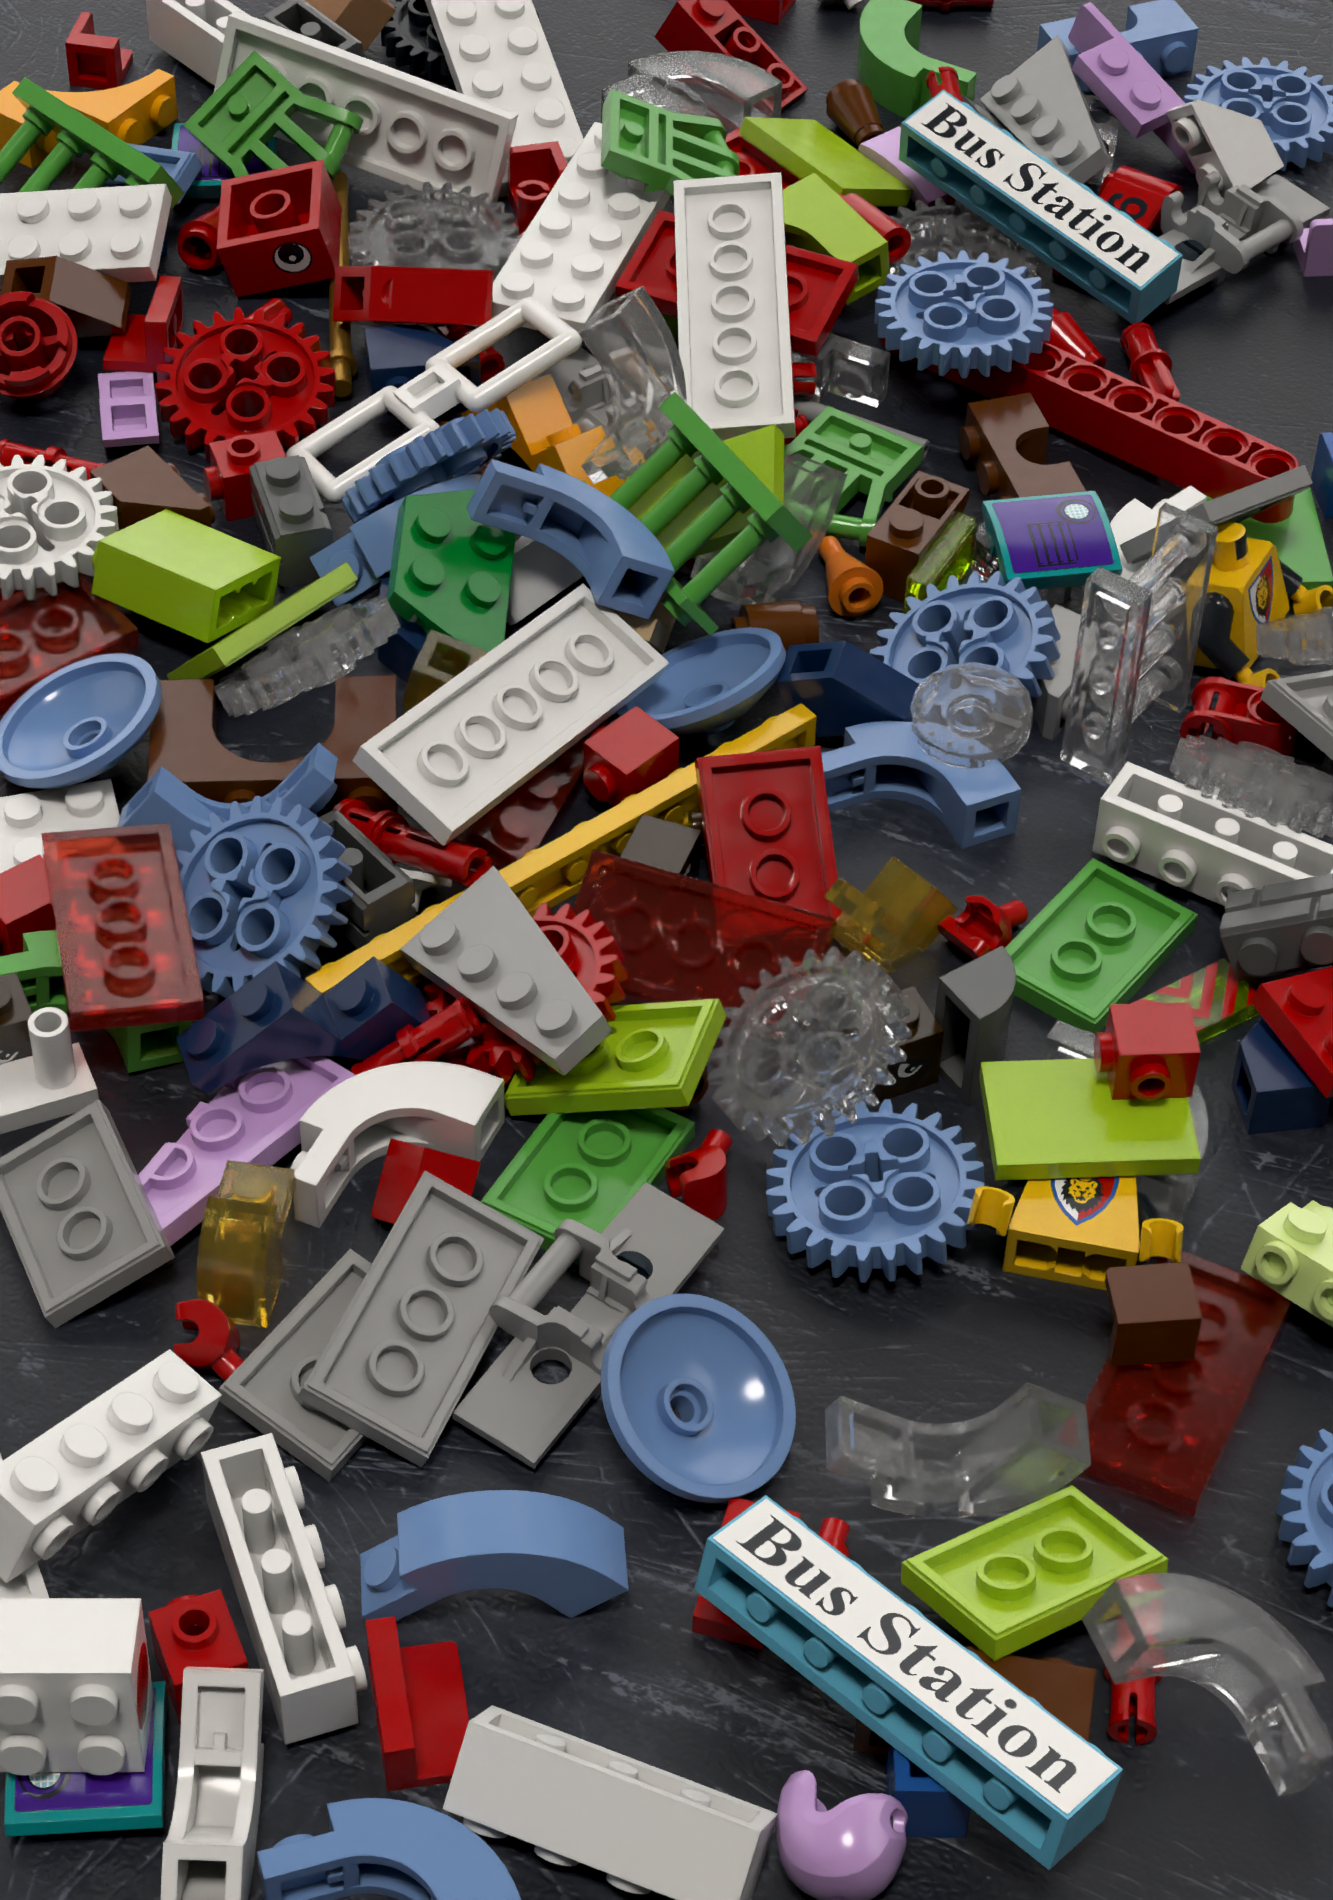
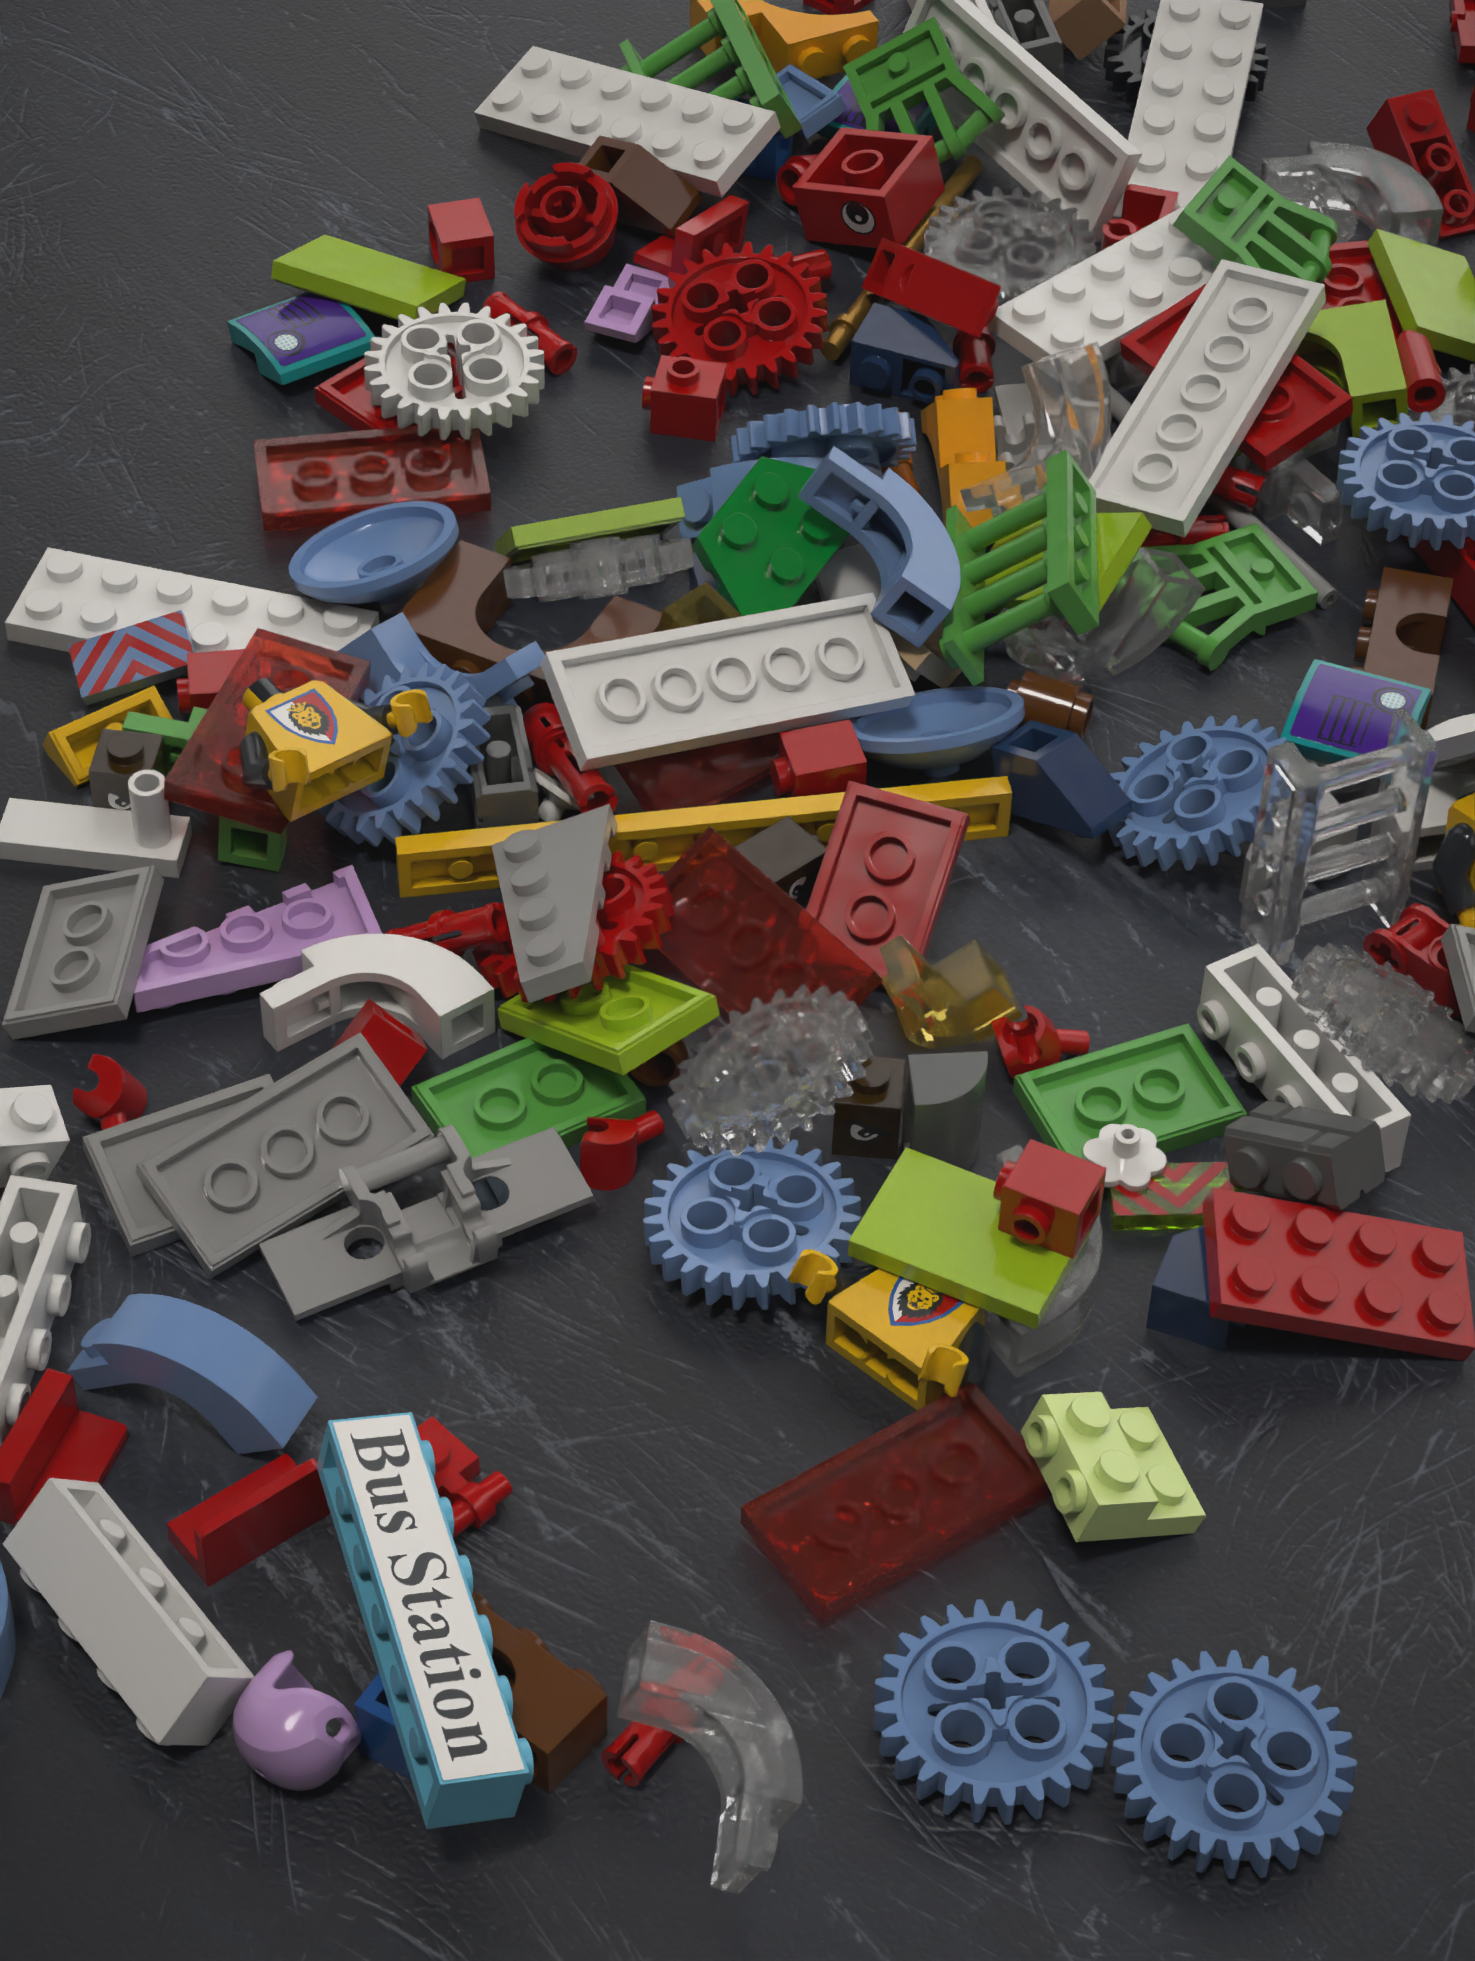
camera: 30 degrees right, 0 degrees up
(147, 485) = (584, 391): reddish brown slope -> none
(185, 575) = (557, 458): lime brick -> none
(198, 915) = (318, 744): none -> yellow torso
(241, 1241) = (178, 1028): clear yellow brick -> none
(287, 1019) = (354, 863): dark blue arch -> none
(289, 516) = (690, 440): dark grey brick -> none
(438, 391) = (898, 375): white bar -> none
(634, 1670) = (249, 1518): none -> red panel
(719, 1379) = (485, 1293): medium blue dish -> none
(850, 583) = (1154, 693): orange cone -> none
(888, 763) = (1078, 872): medium blue arch -> none
(911, 529) = (1241, 669): reddish brown slope -> none
(948, 556) = (1262, 698): clear neon green tile -> none
(962, 1467) = (627, 1478): clear arch -> none
(971, 714) = (1146, 845): clear tile -> none
(1029, 1571) = (609, 1588): lime tile -> none
(1132, 985) = (1127, 1154): none -> white plant
(1152, 1313) = (891, 1427): reddish brown panel -> none

